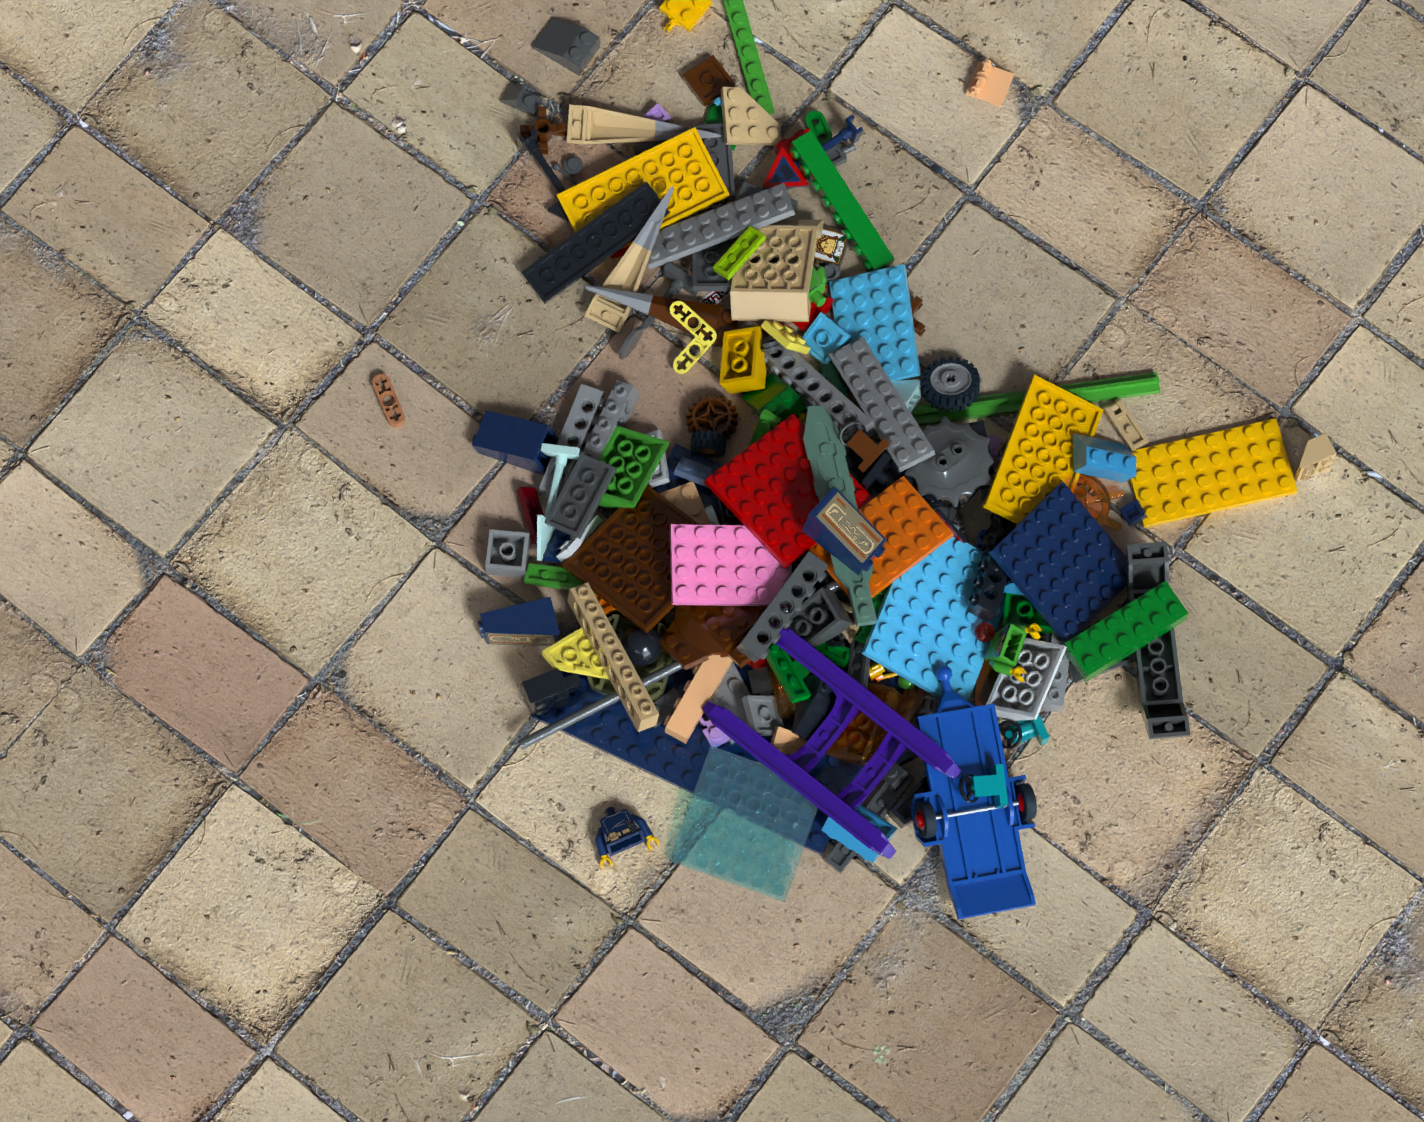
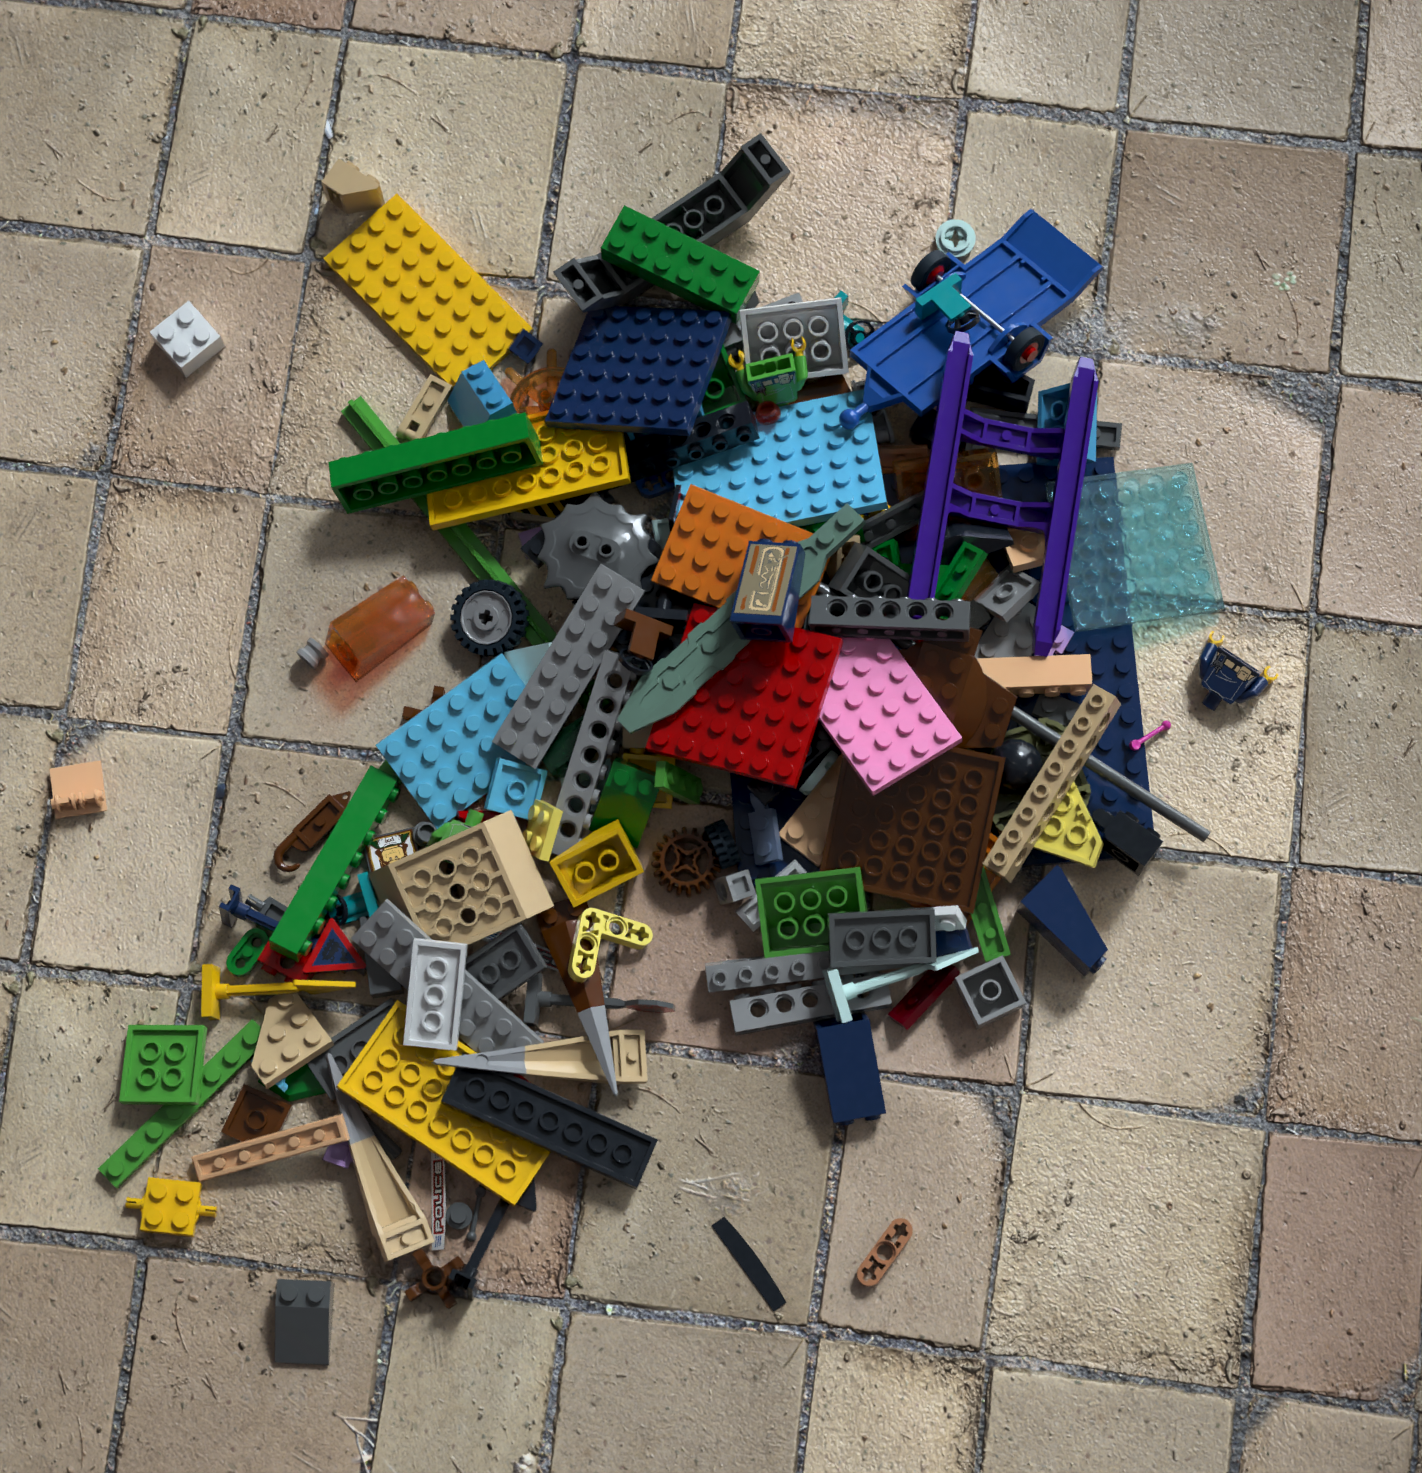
camera: 120 degrees left, 5 degrees up
(433, 320) = (750, 1263): none -> black sticker
(522, 100) = (407, 1333): dark grey slope -> none
(585, 156) = (438, 1191): none -> sticker
(611, 742) = (1135, 744): none -> dark pink hinge
(676, 435) = (734, 887): none -> light grey brick
(683, 76) = (270, 1147): none -> light nougat tile
(715, 211) = (435, 994): none -> white plate
(739, 253) = (475, 934): lime plate -> none
(770, 346) = (567, 836): dark grey plate -> none
(776, 42) = (163, 1064): none -> bright green plate
(804, 95) = (213, 991): none -> yellow piece
(809, 206) = (355, 905): none -> teal piece
(876, 207) = (312, 828): none -> reddish brown plate
(987, 316) = (378, 627): none -> clear orange slope
(995, 266) = (312, 653): none -> light grey wheel
(1043, 834) = (963, 231): none -> light aqua gear
(1074, 398) = (435, 463): none -> green brick
(1265, 301) = (187, 339): none -> white brick

